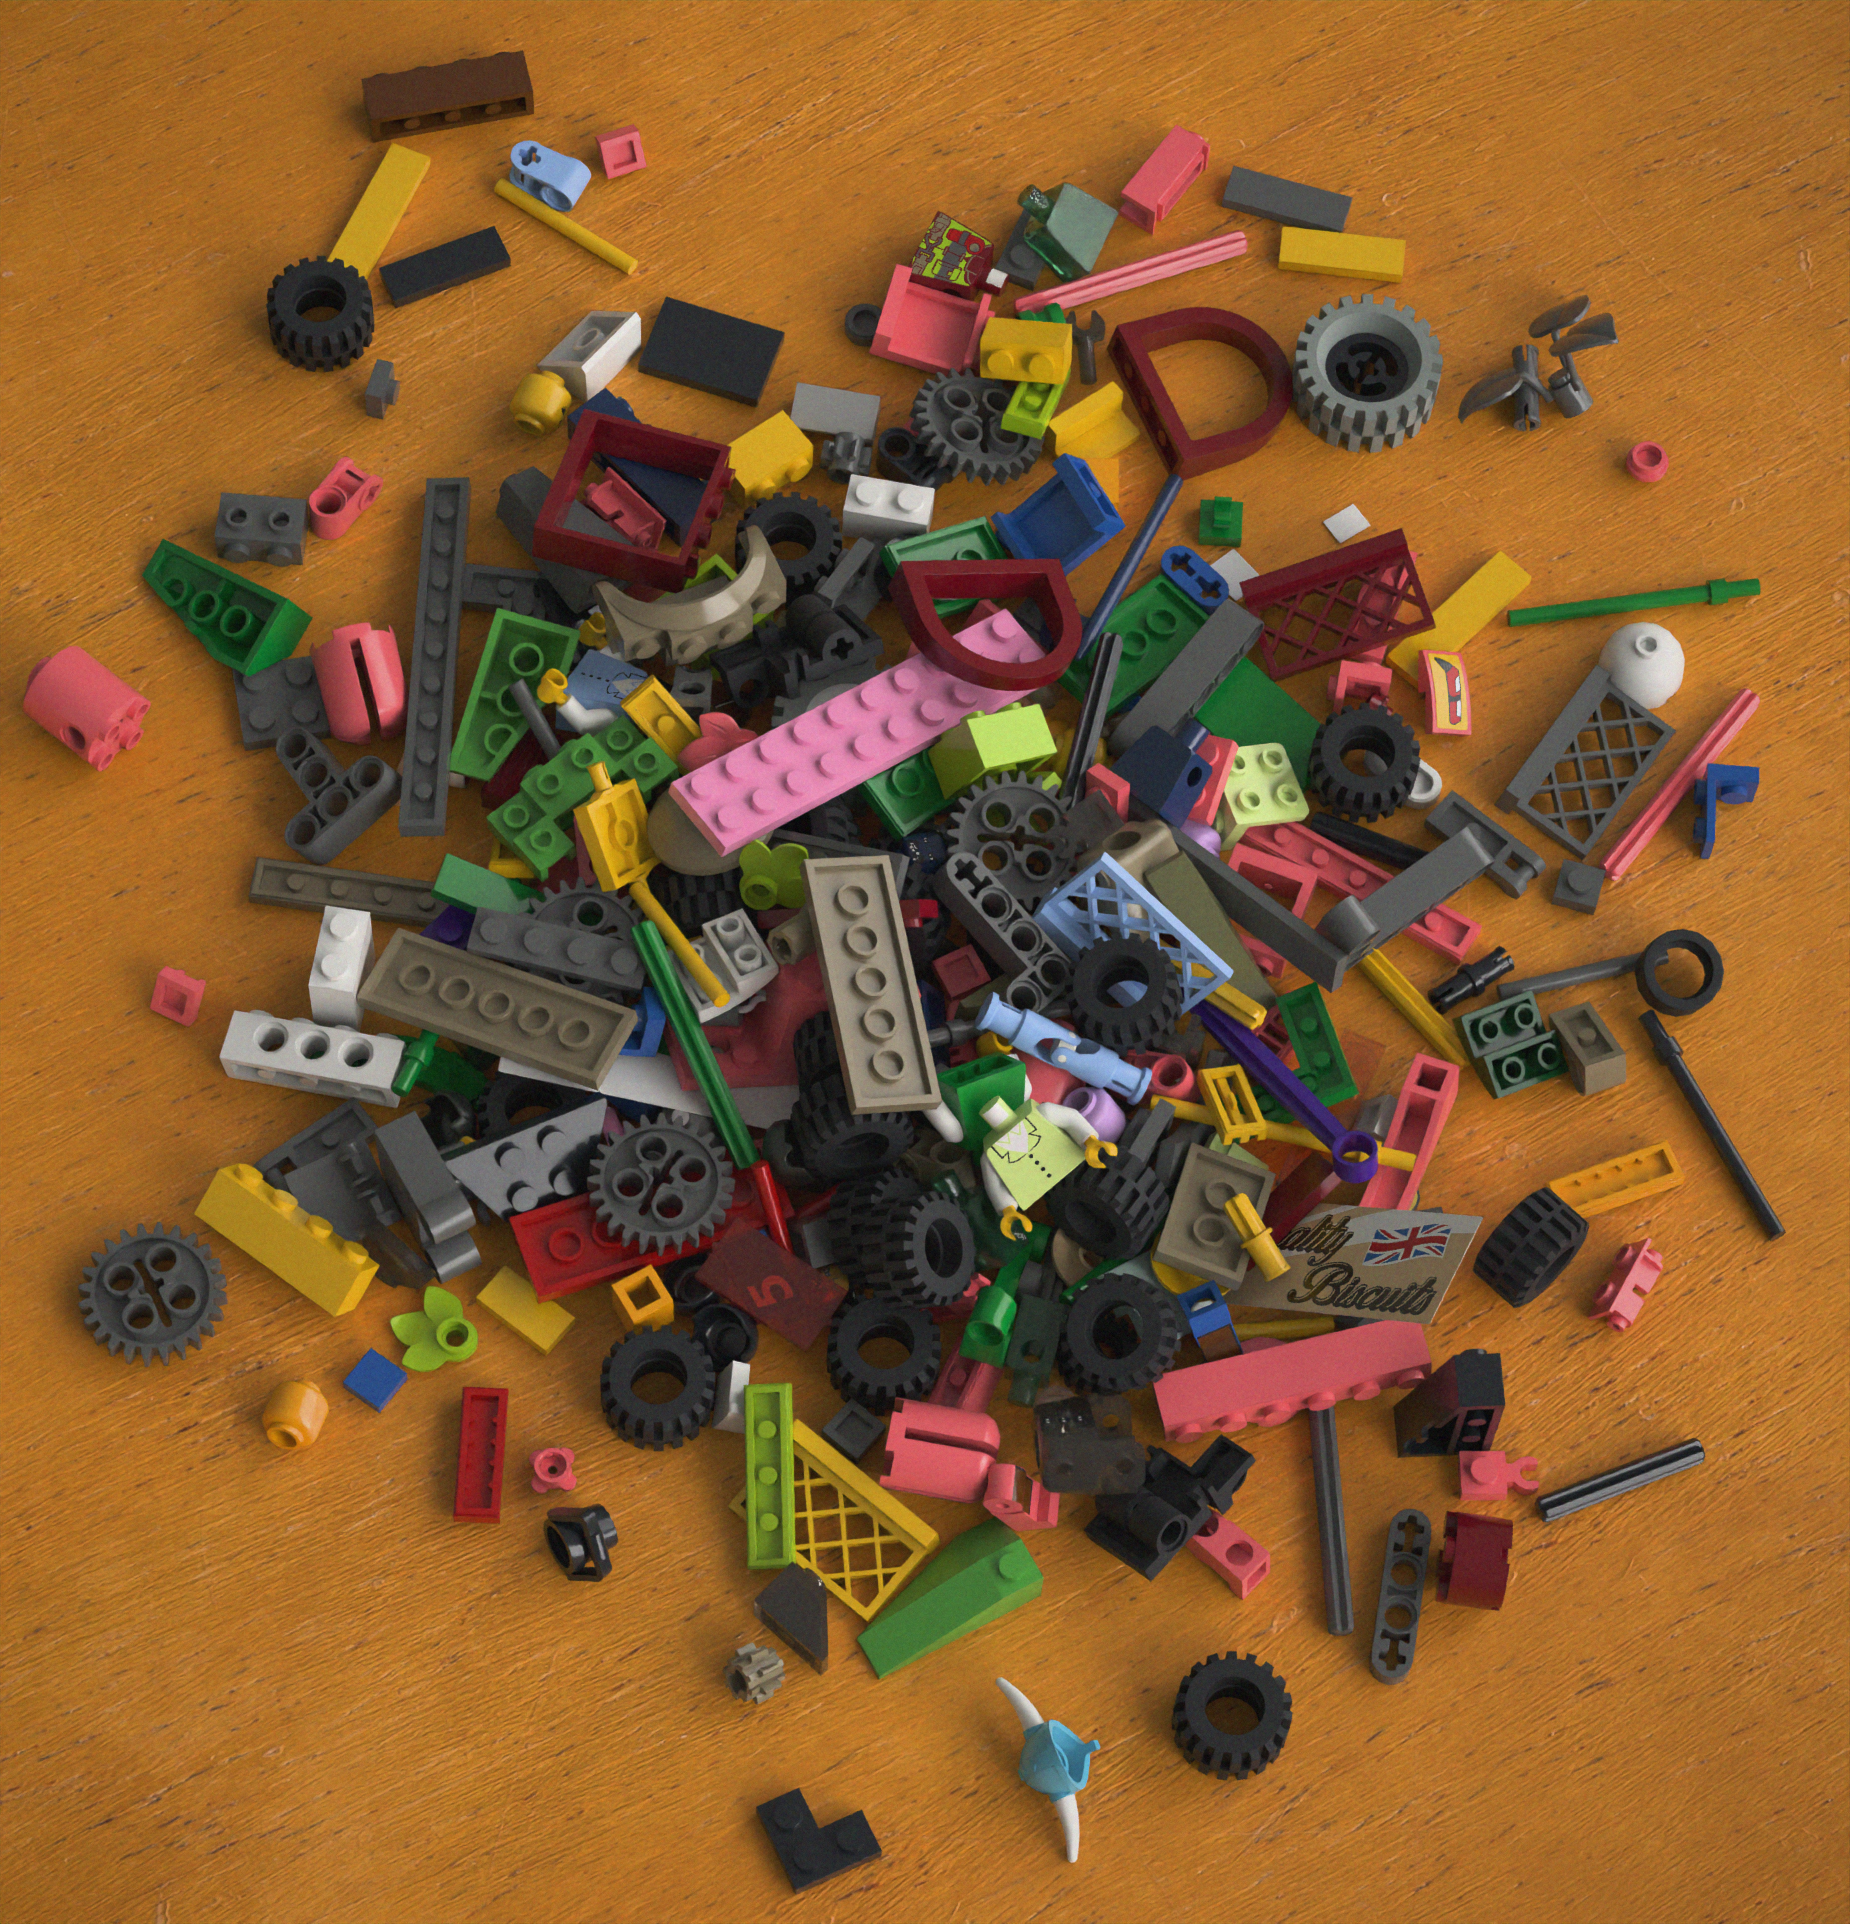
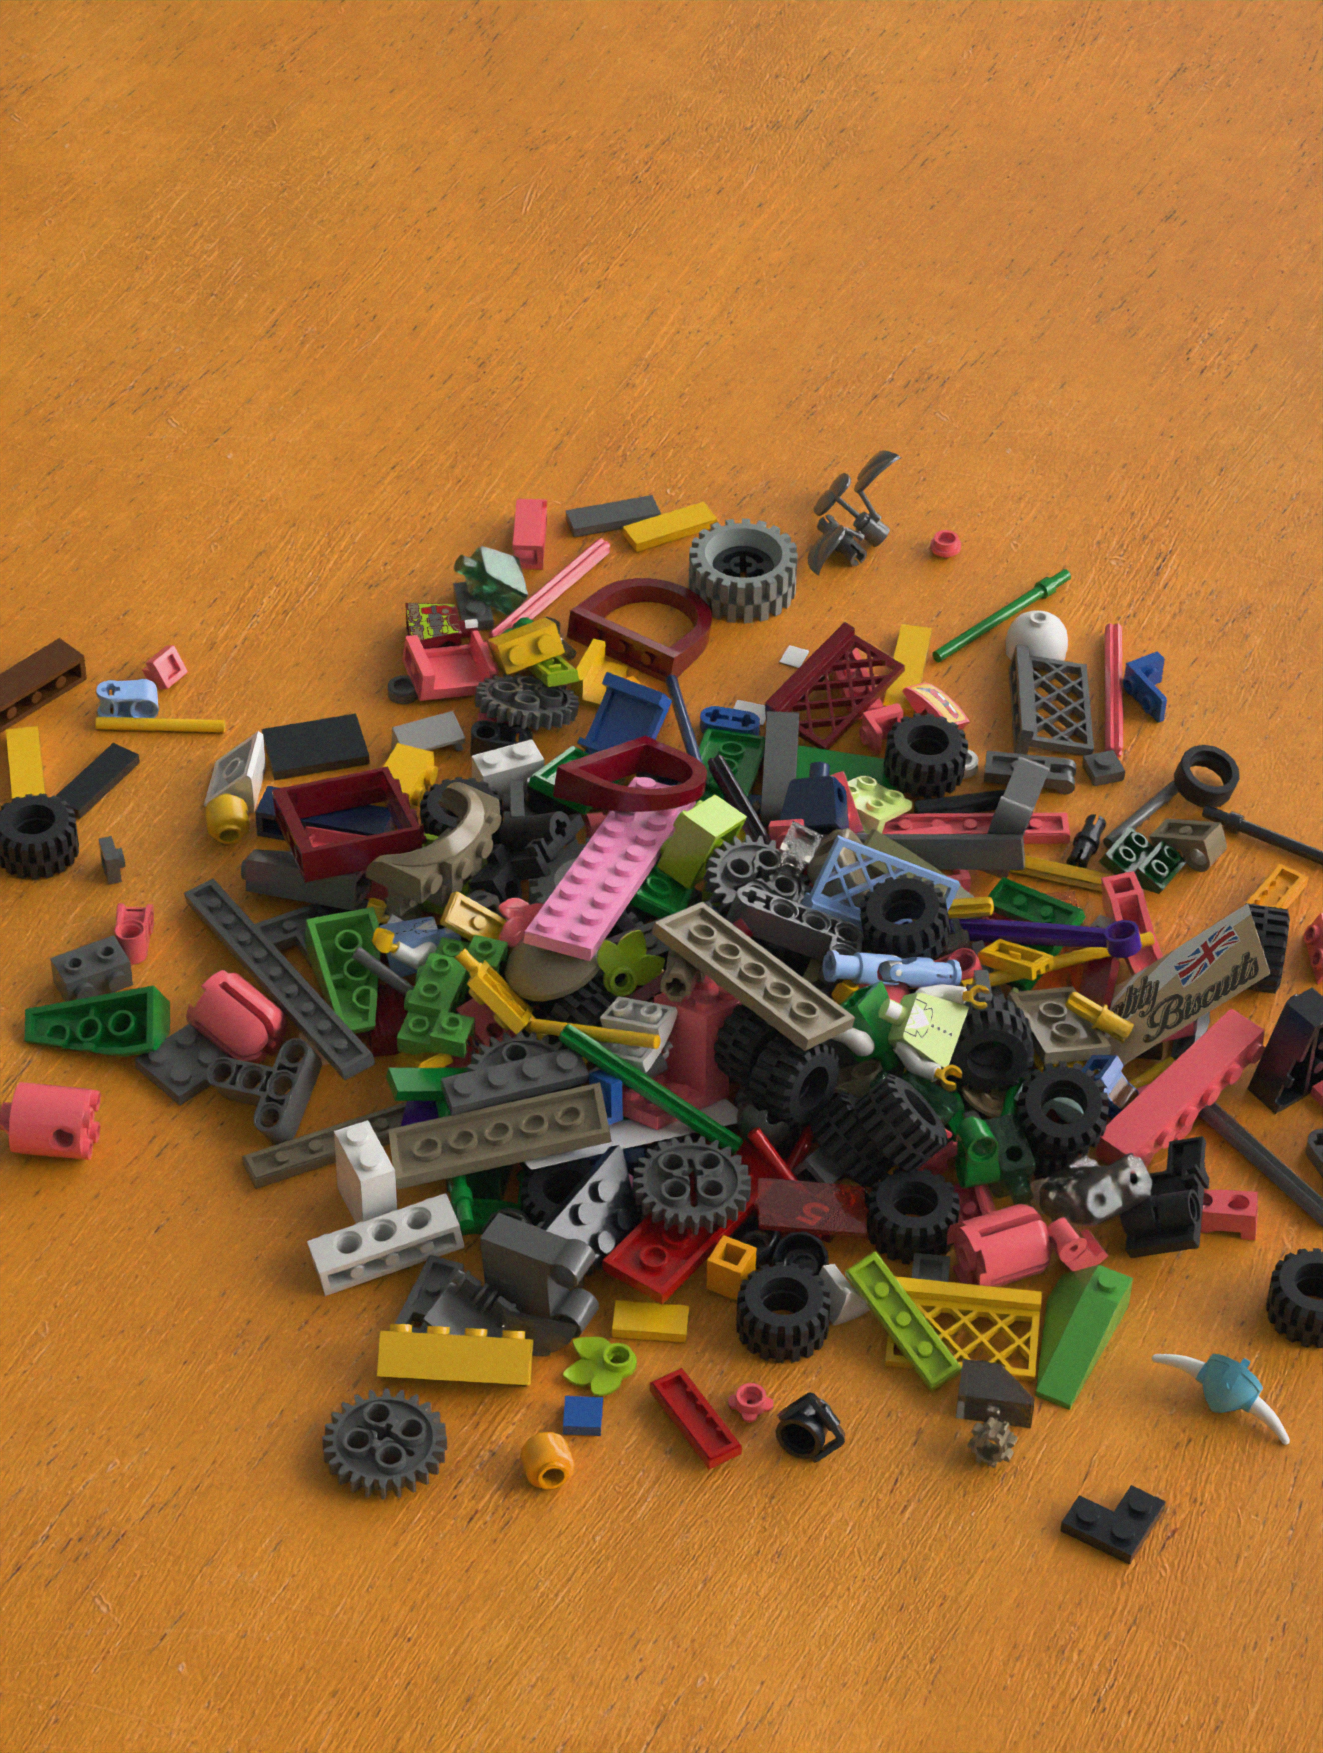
camera: 30 degrees left, 20 degrees down
(177, 995) = (254, 1260): coral tile -> none
(845, 457) = (455, 756): dark grey gear -> none
(1220, 522) = (718, 687): green tile -> none

